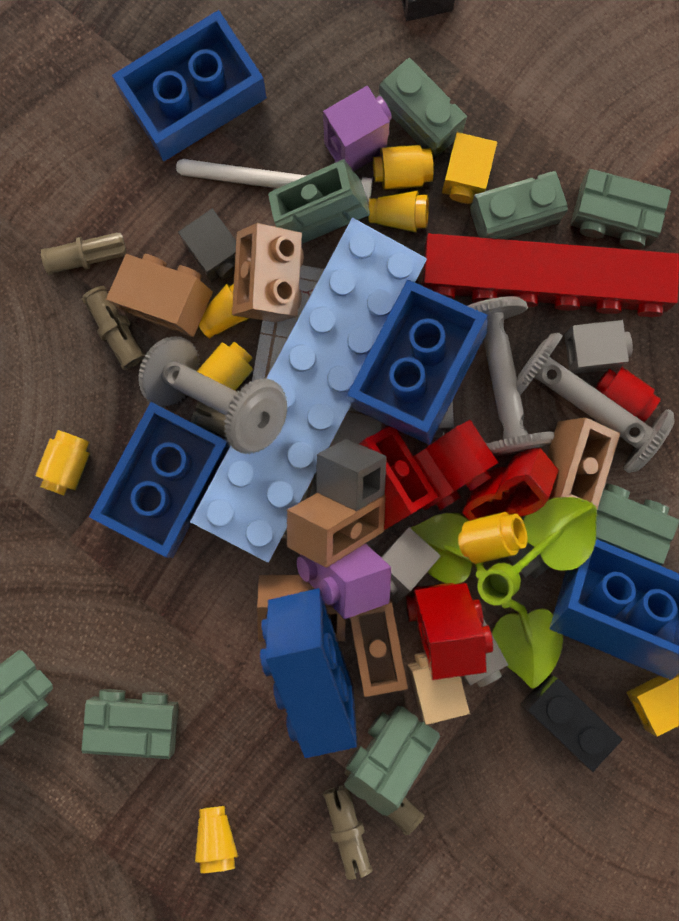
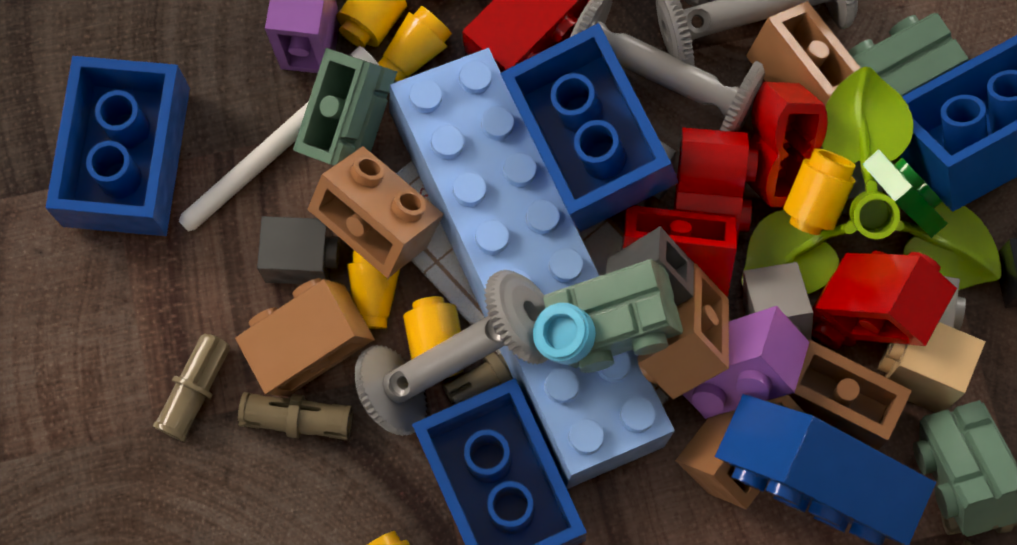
camera: 45 degrees left, 10 degrees down
(260, 451) = (564, 333): none -> medium azure tile
(300, 472) = (629, 312): none -> sand green brick
(534, 592) = (907, 191): none -> green plate

